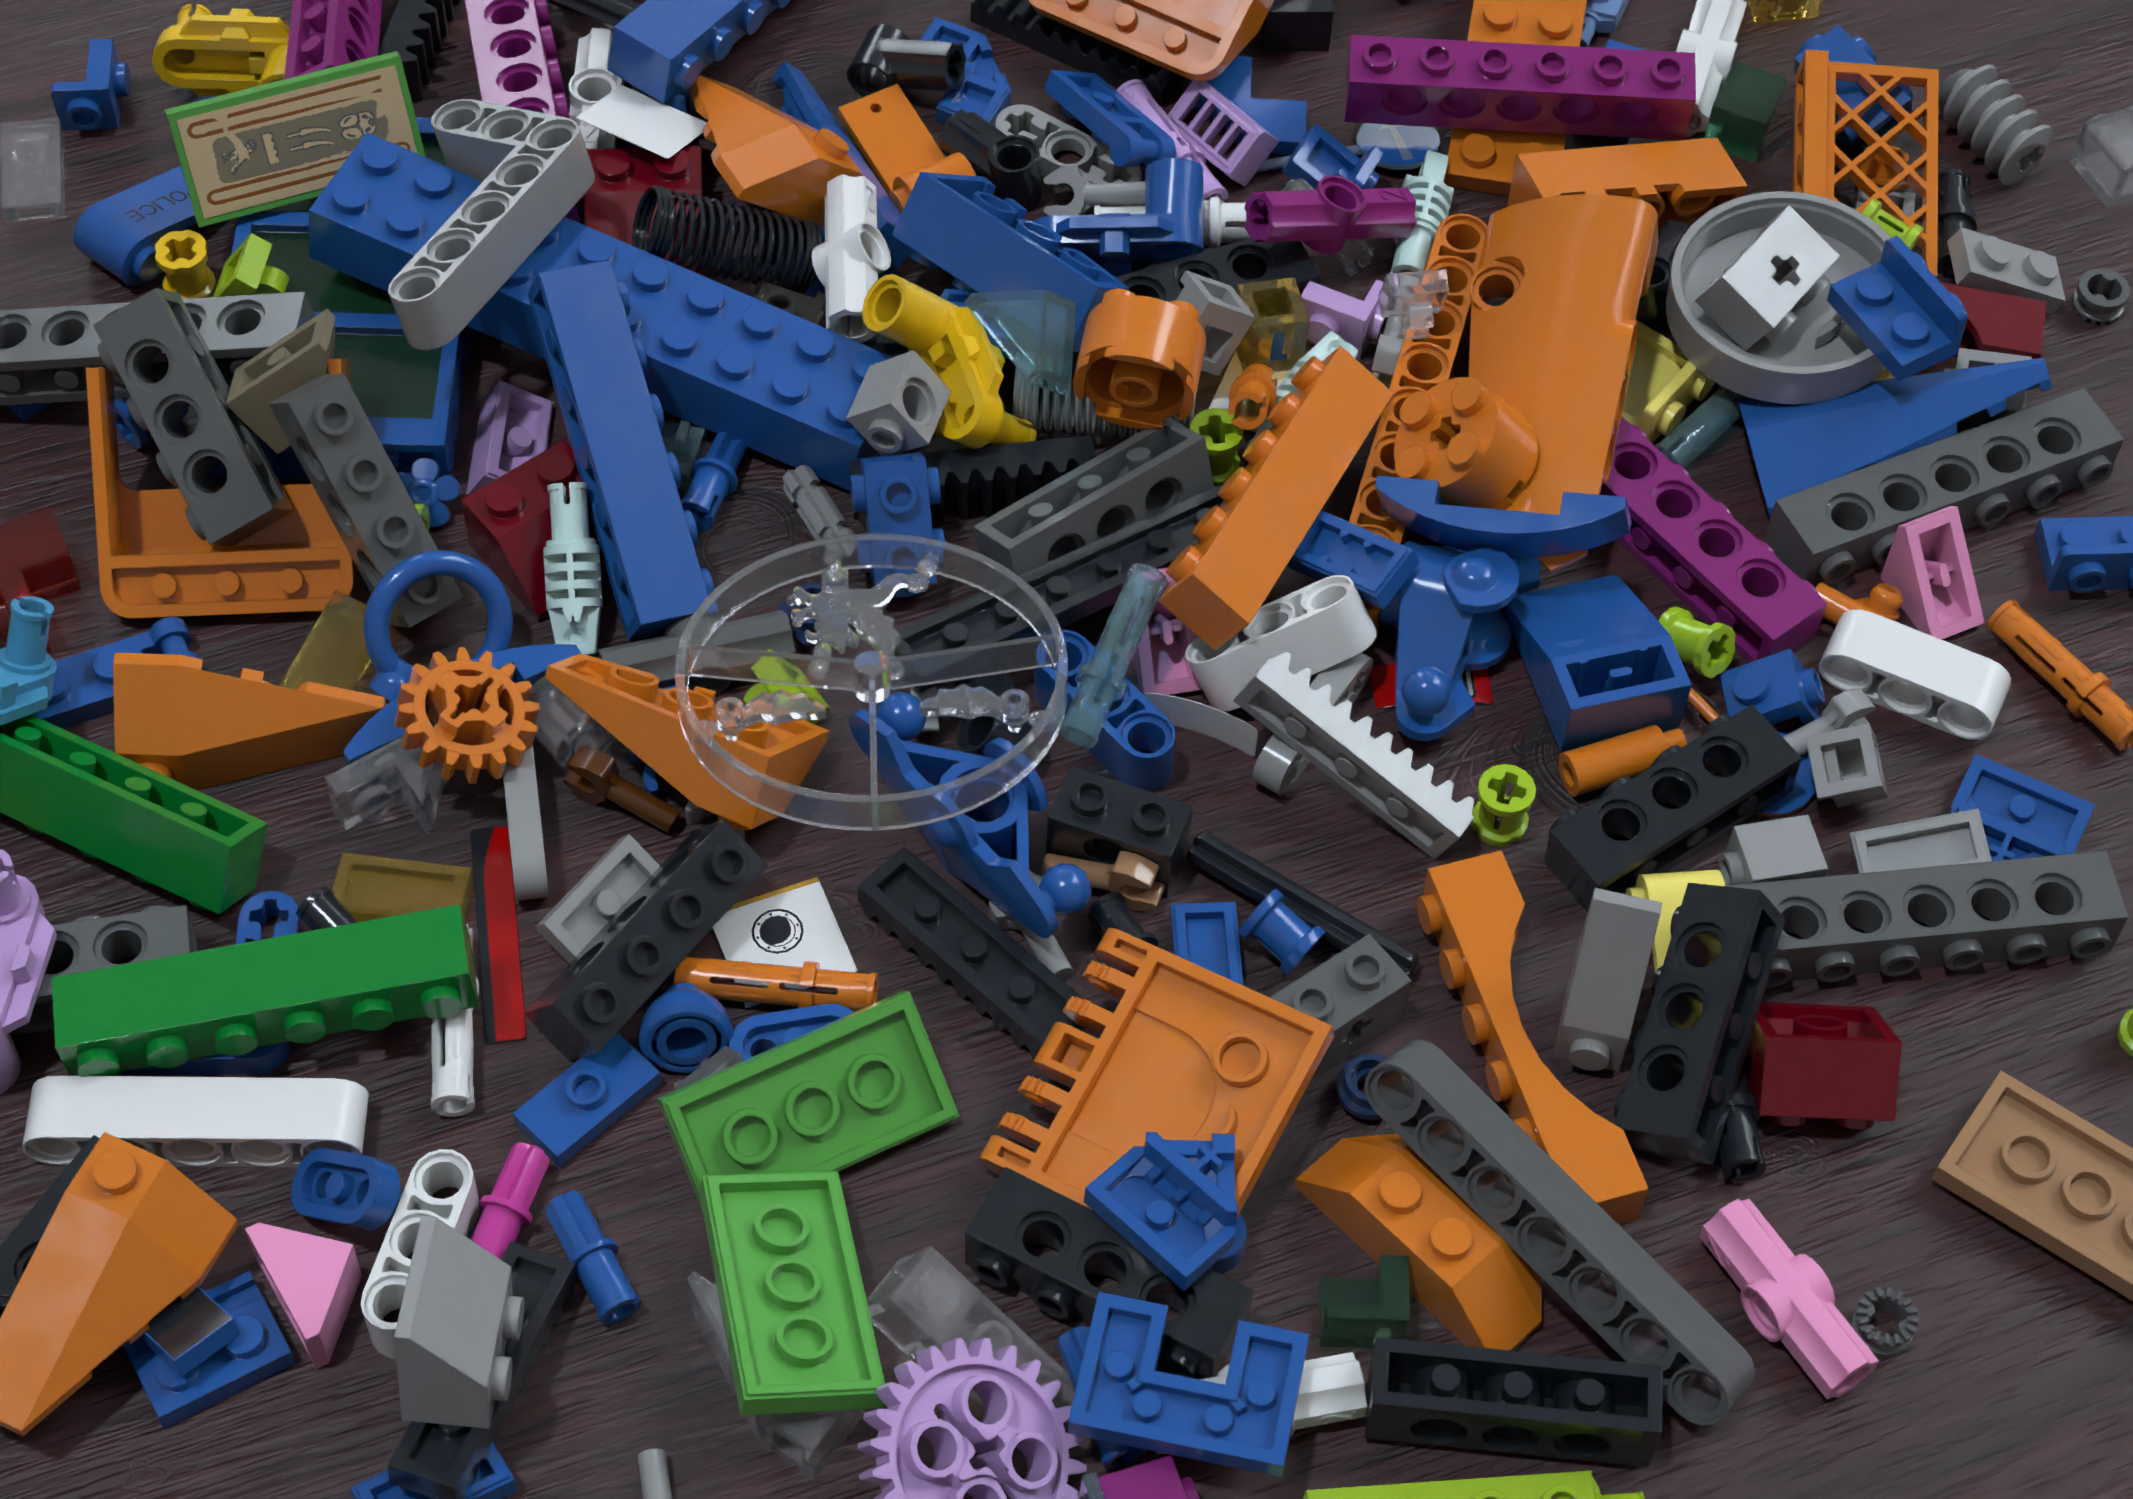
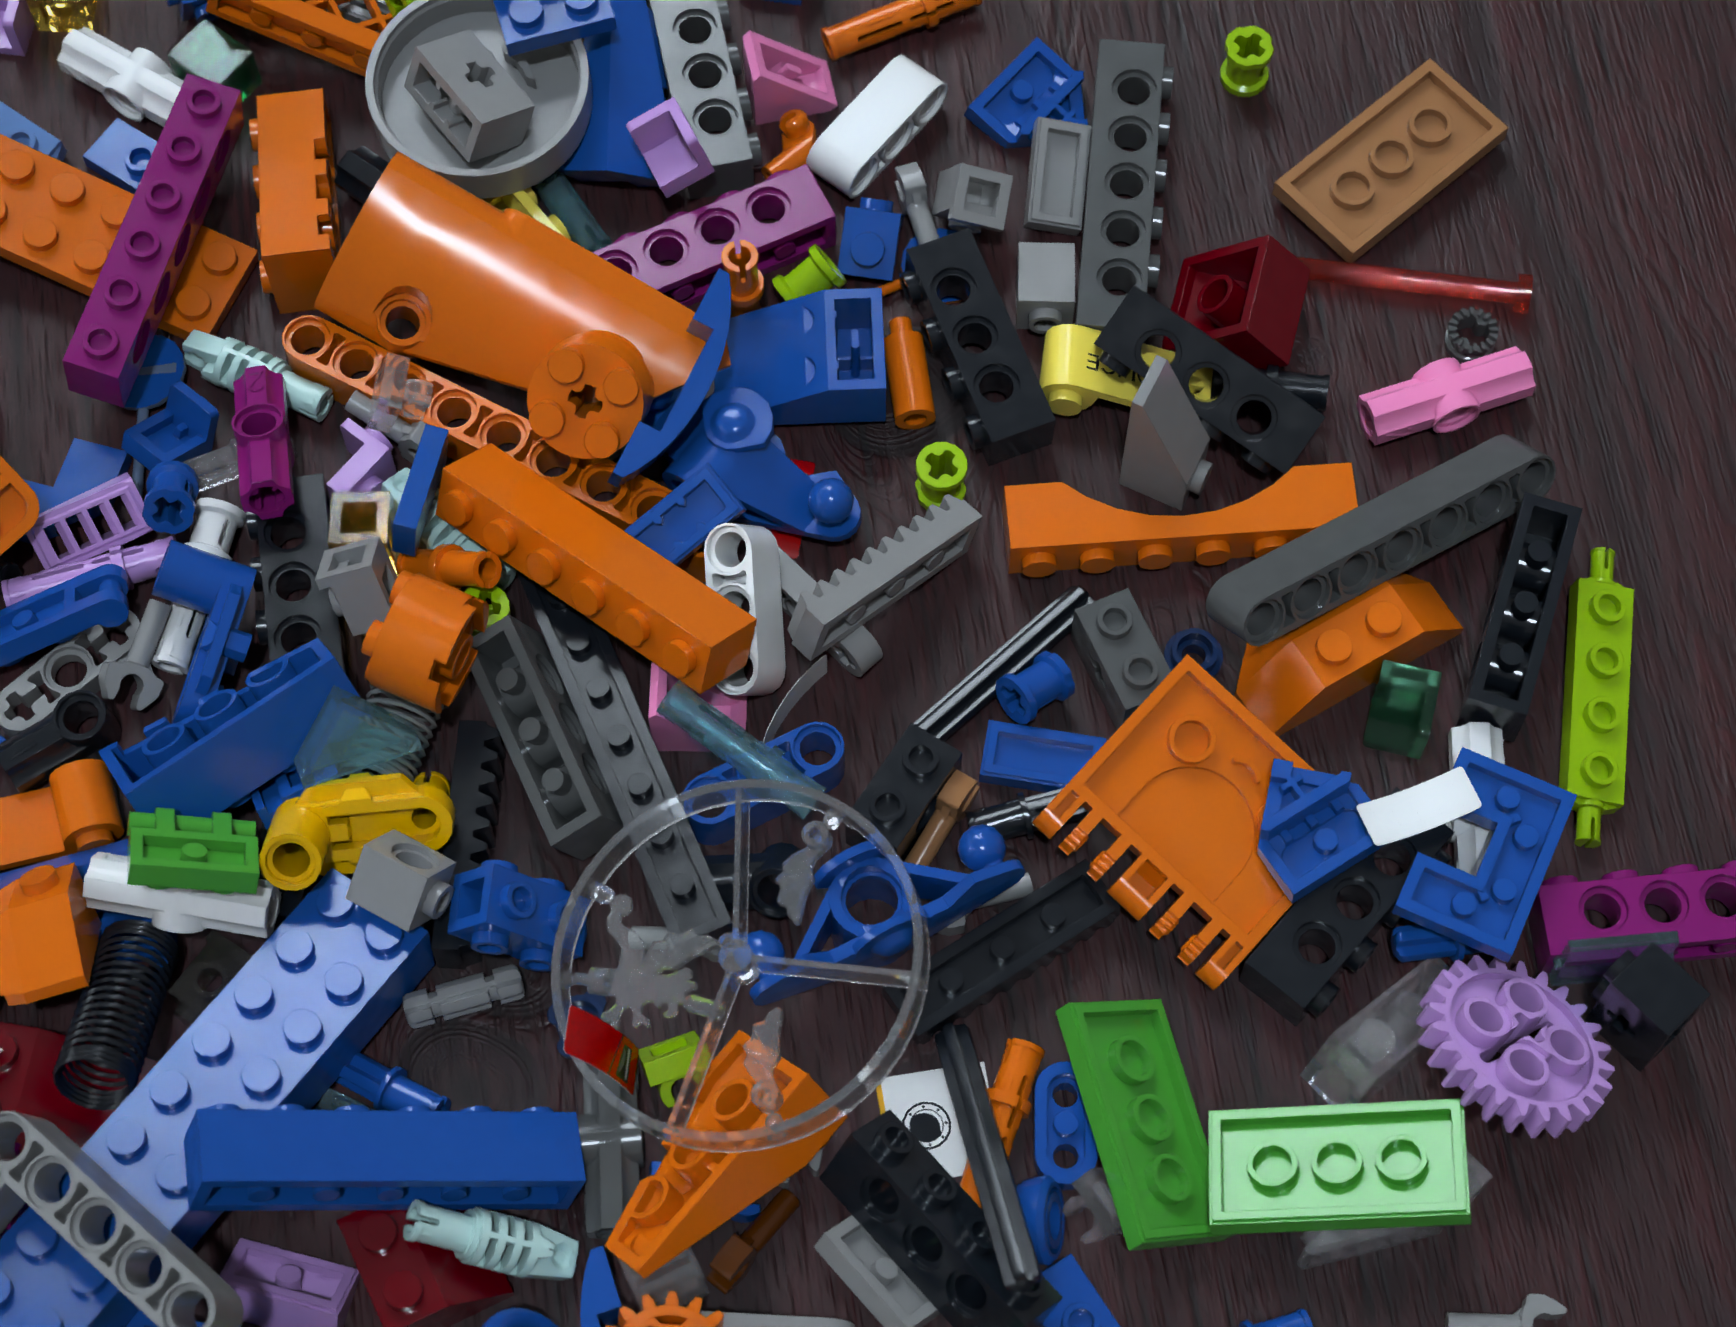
camera: 75 degrees left, 10 degrees up
(732, 956) = (988, 1159): none -> black axle
(764, 594) = (601, 1047): none -> red sticker
(877, 228) = (192, 852): none -> bright green plate
(1219, 1296) = (1419, 807): none -> white sticker
(1260, 164) = (170, 497): none -> blue bush
(1293, 340) = (420, 490): none -> blue tile
(1658, 569) = (745, 277): none -> orange pin
(1793, 472) = (670, 147): none -> lavender panel
(1960, 1364) = (1486, 289): none -> clear red bar

